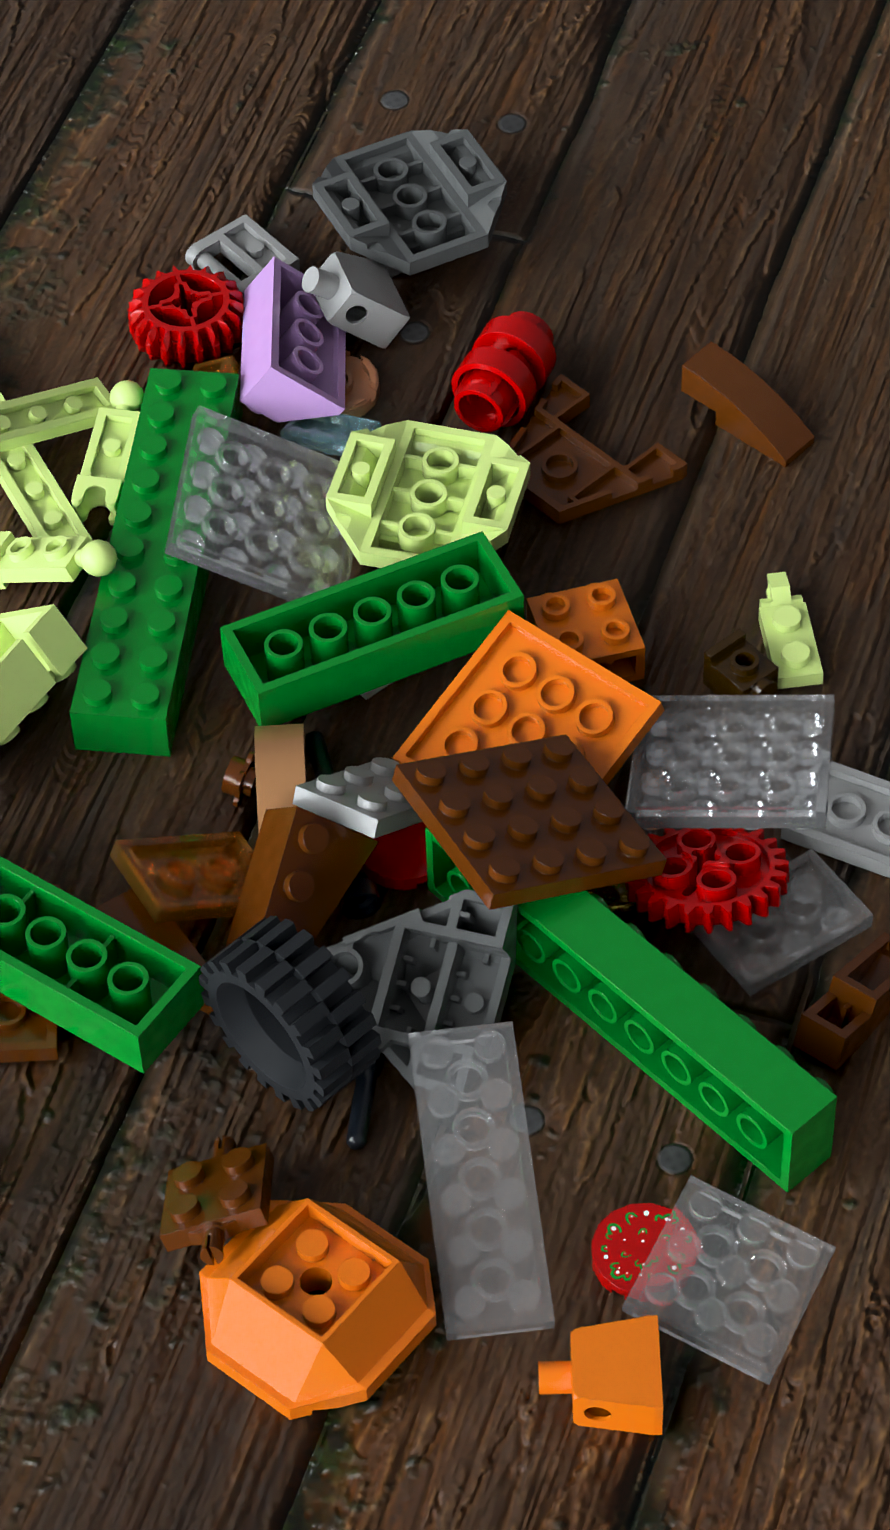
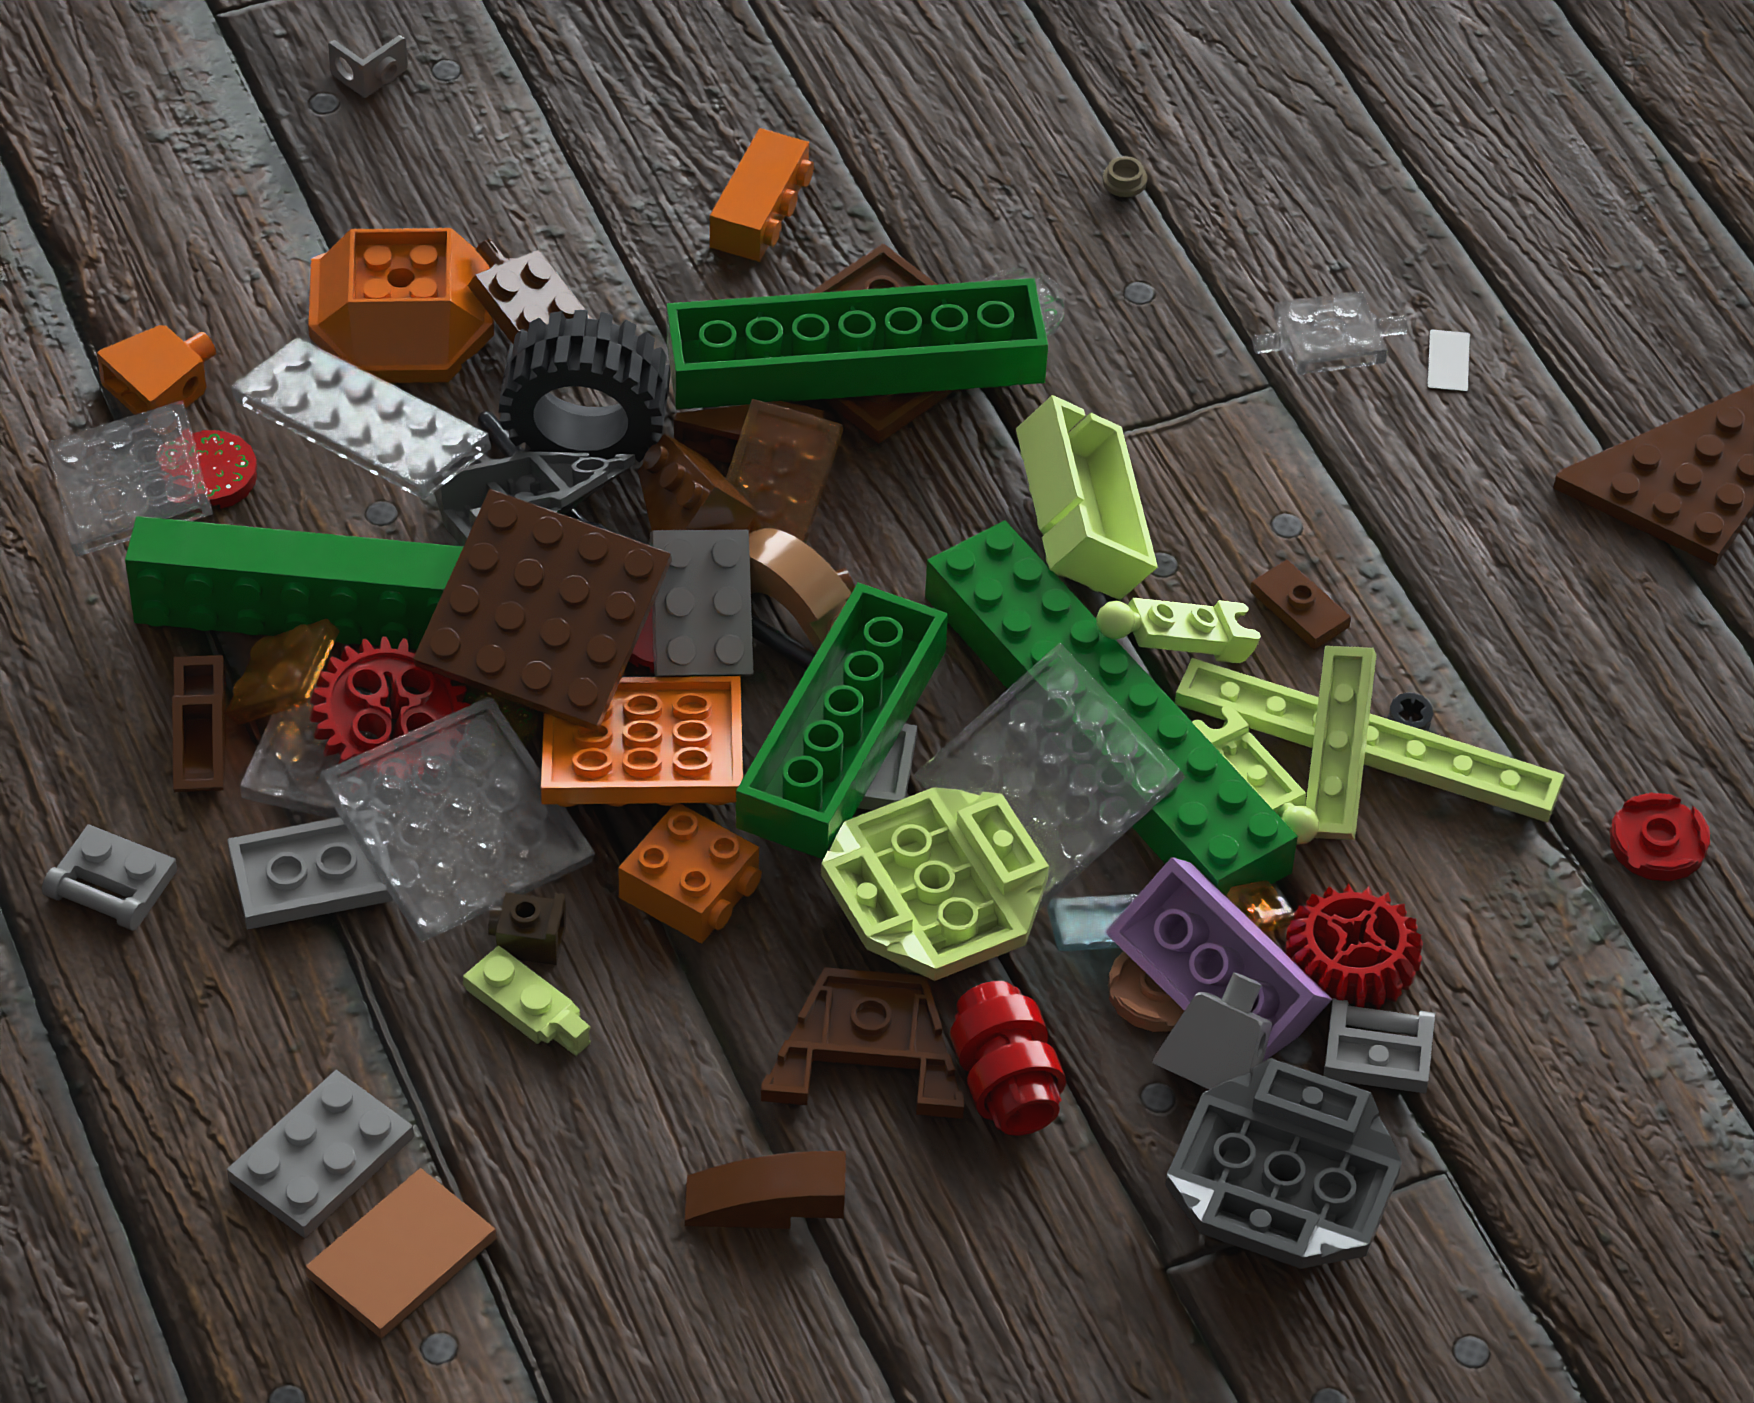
camera: 135 degrees right, 0 degrees up
(761, 973) = (282, 671): none -> clear orange plate

